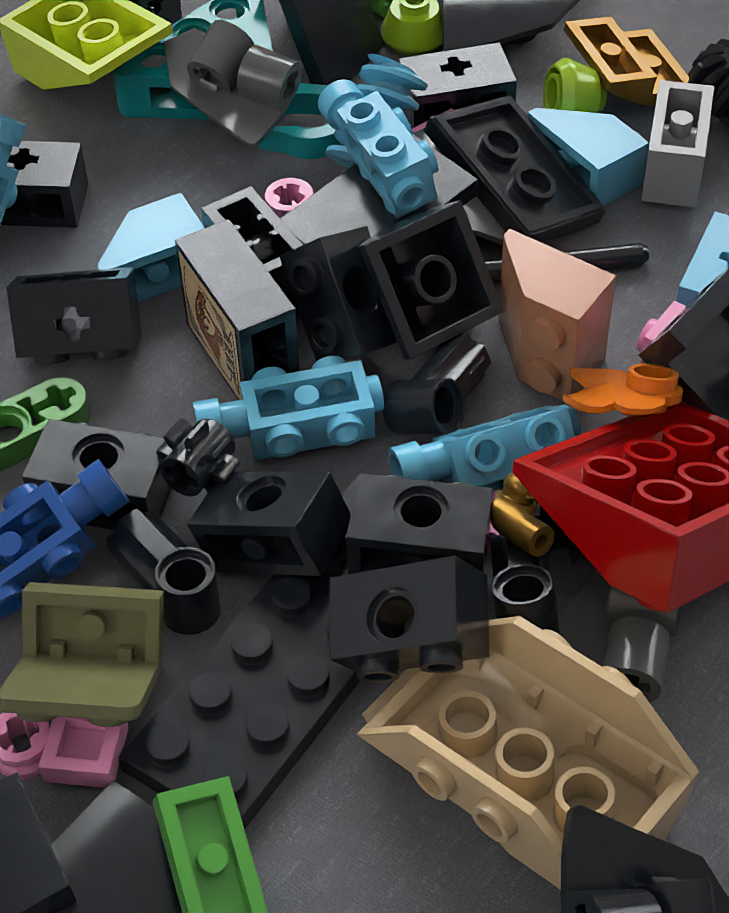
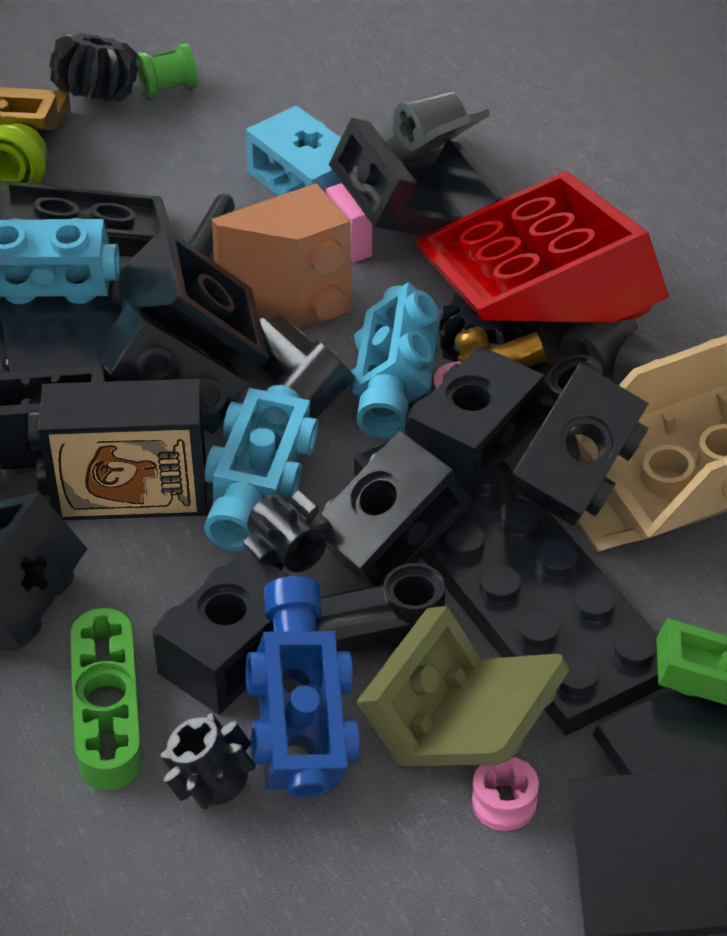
camera: 65 degrees left, 5 degrees down
(82, 752) = (555, 743): bright pink plate -> none
(598, 148) = (93, 163): medium azure slope -> none
(639, 392) = (410, 249): orange plate -> none
(678, 143) = (140, 120): light grey brick -> none

